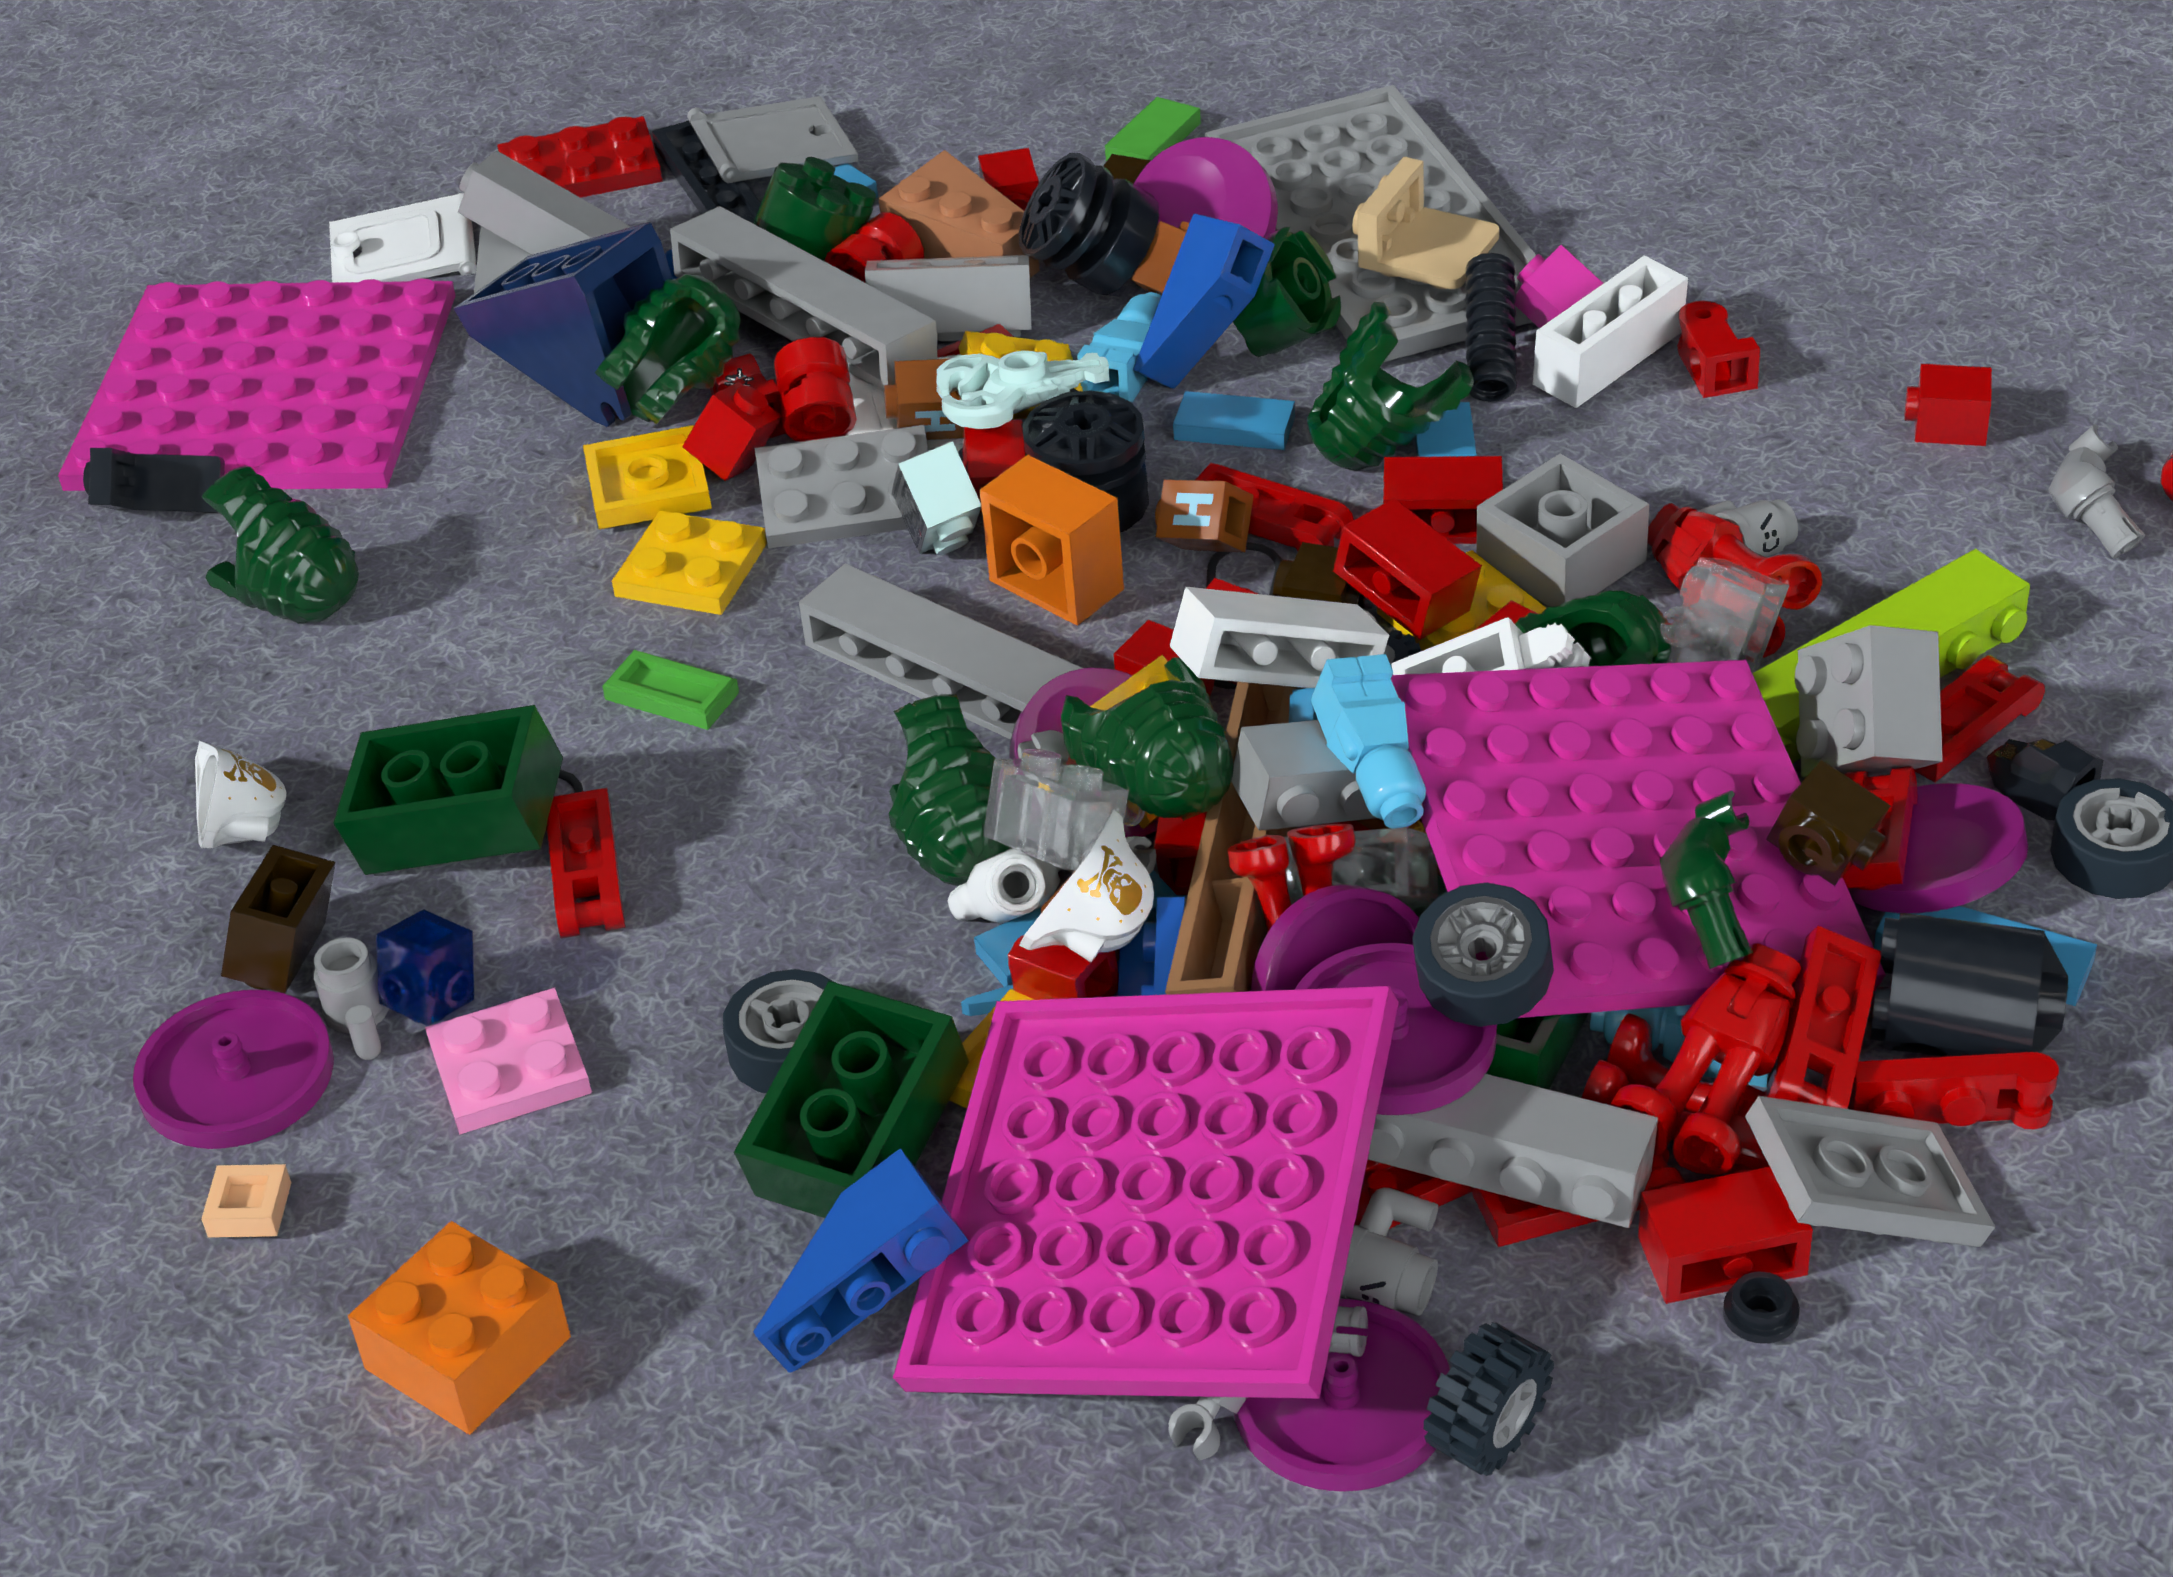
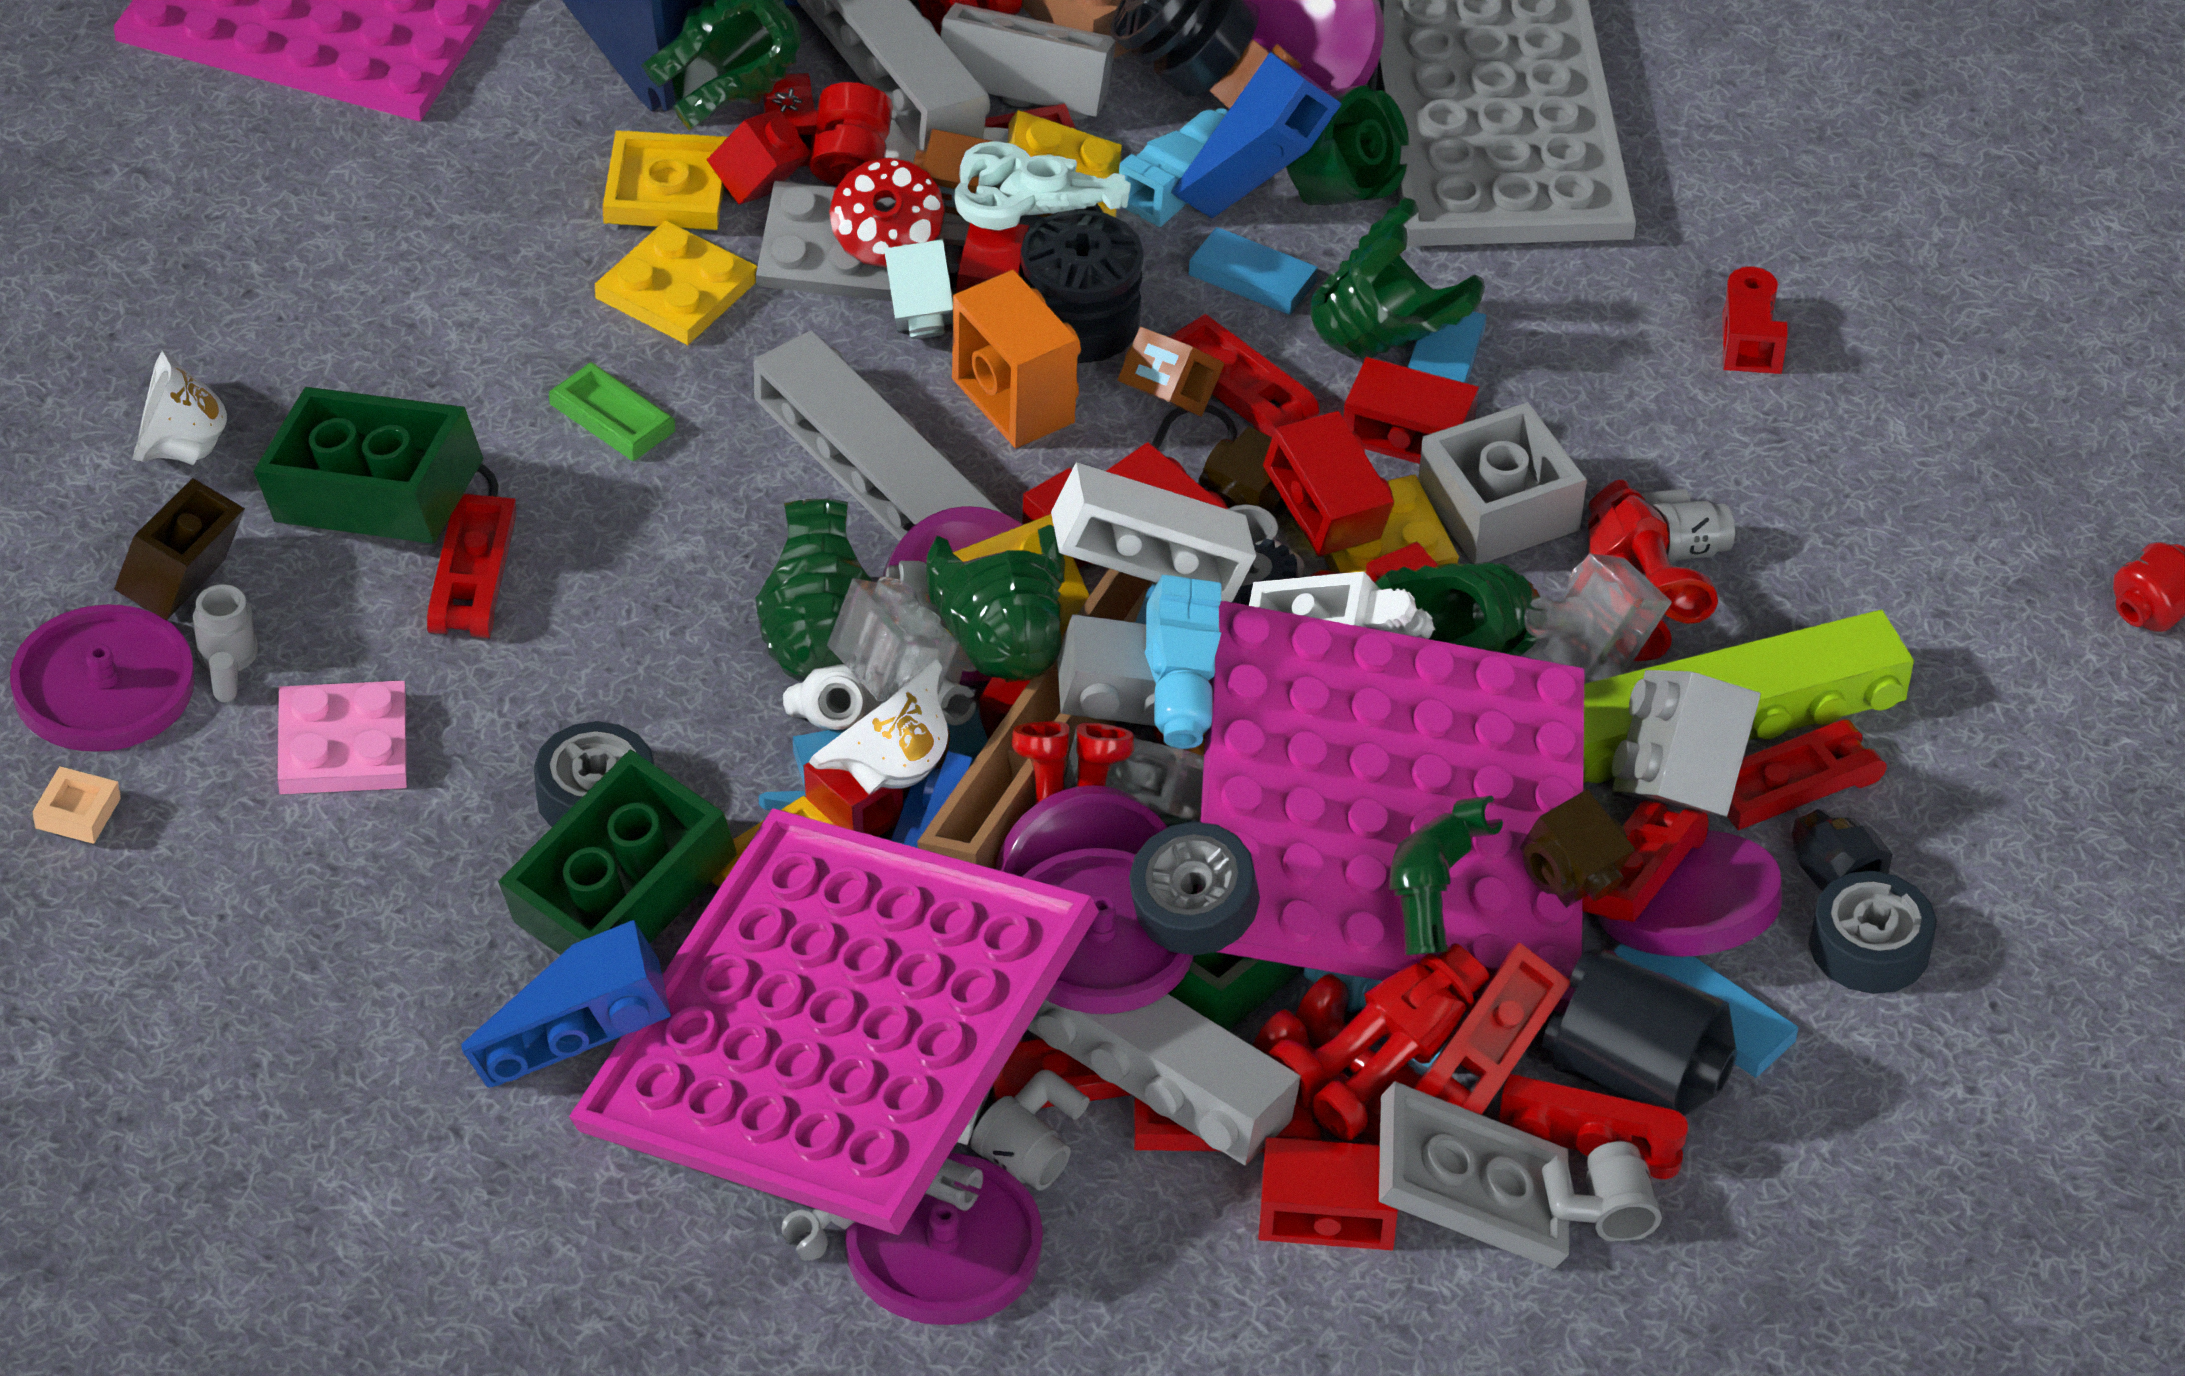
camera: 10 degrees right, 5 degrees up
(150, 481) = (200, 59): black bracket -> none
(284, 551) = (297, 172): dark green hair -> none
(425, 967) = (294, 631): clear blue brick -> none
(460, 1326) = (220, 969): orange brick -> none
(870, 466) = (867, 231): none -> red dish
(1416, 241) = (1505, 121): tan bracket -> none
(1488, 1398) = (1054, 1276): black wheel -> none
(1491, 326) = (1537, 241): black piece -> none
(1553, 285) = (1618, 222): dark pink brick -> none
(1609, 331) = (1651, 277): white brick -> none
(1763, 1292) = (1336, 1252): black plate -> none
(1950, 404) = (1950, 447): red brick -> none
(2011, 1152) = (1619, 1195): none -> light grey piece
(2086, 493) = (2028, 576): light grey arm -> none

